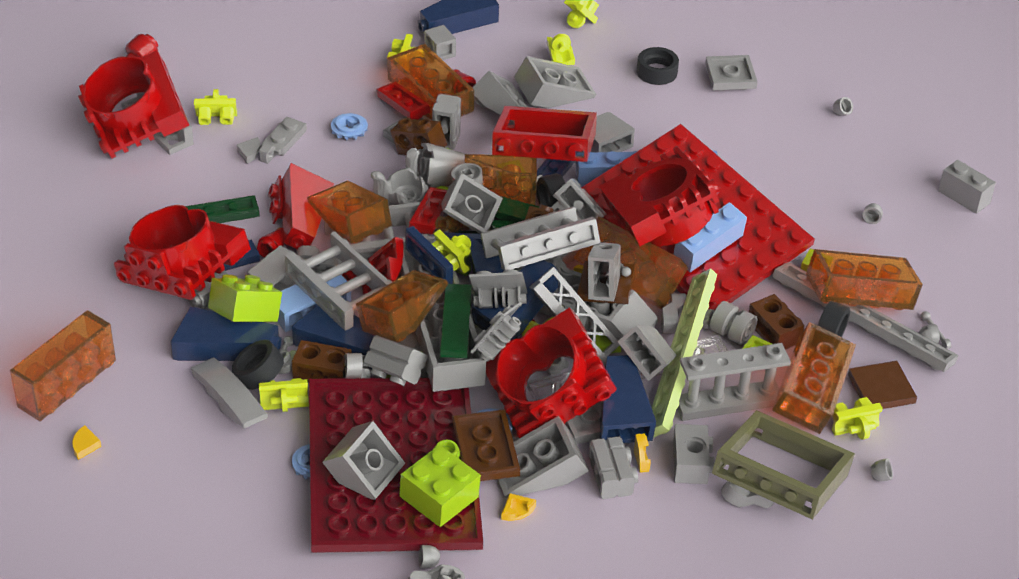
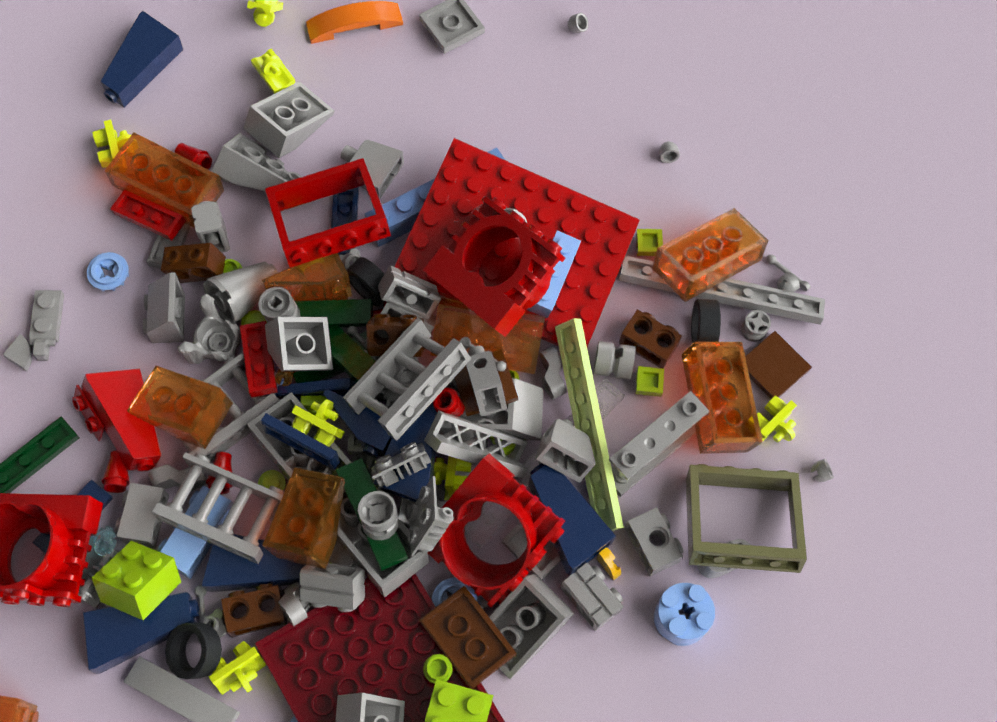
camera: 30 degrees left, 25 degrees up
(236, 265) = (108, 544): none -> clear light blue pin
(380, 156) = (165, 310): none -> light grey slope
(387, 260) = (255, 459): red slope -> none
(441, 42) = (142, 113): light grey brick -> none
(459, 310) = (378, 515): none -> light grey wheel
(517, 506) = (527, 685): yellow tile -> none
(567, 269) = (449, 402): none -> red cone
(644, 39) = (352, 17): none -> orange slope
(654, 75) = (371, 31): black tyre -> none
(687, 510) = (692, 600): none -> light blue brick
(880, 349) = (761, 324): none -> light grey wheel
(966, 186) = (738, 80): light grey brick -> none

